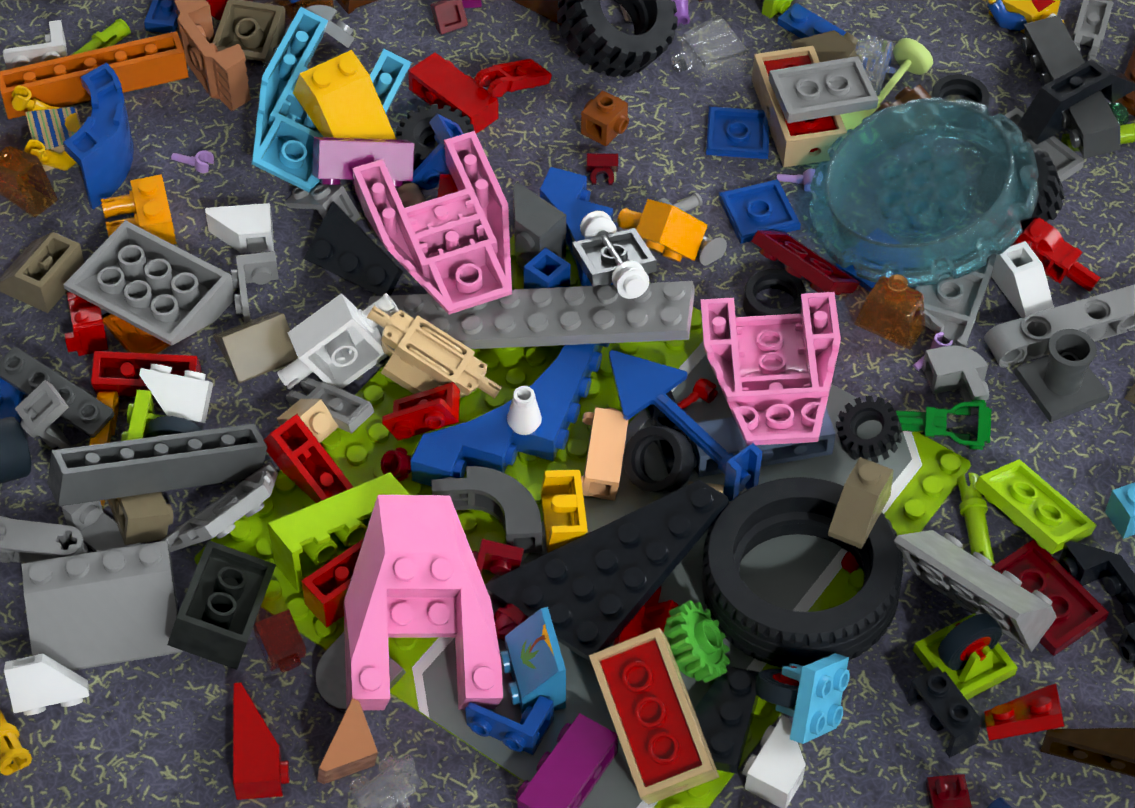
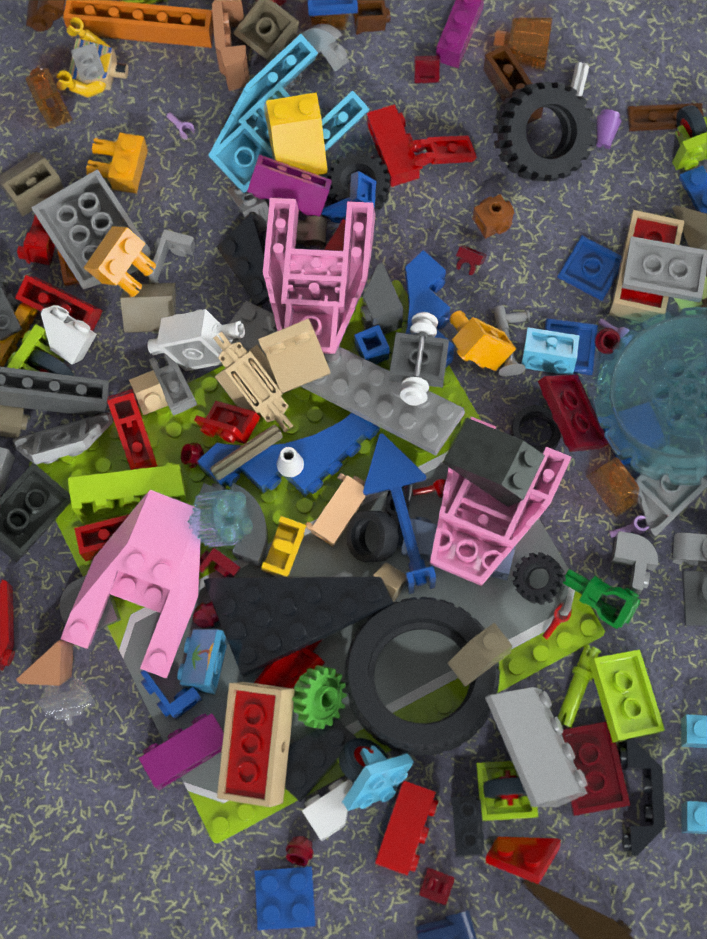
camera: 30 degrees right, 20 degrees up
(57, 120) = (88, 62): none -> light grey bracket
(105, 140) = (120, 91): blue panel -> none
(199, 290) = (114, 257): none -> light orange brick
(243, 226) = (187, 203): white slope -> none
(280, 641) = (49, 559): clear red brick -> none
(465, 426) = (246, 452): none -> dark tan axle
(468, 304) = (295, 356): none -> tan bracket
(477, 495) = (220, 518): none -> clear light blue brick
(711, 50) = (609, 185): clear torso -> none
(743, 215) = (550, 351): none -> medium azure bracket
(757, 324) = (494, 461): none -> pearl dark grey slope
(798, 185) = (606, 340): none -> dark red plate
(878, 746) = (406, 828): none -> red brick
(913, 468) = (556, 621): none -> red hand

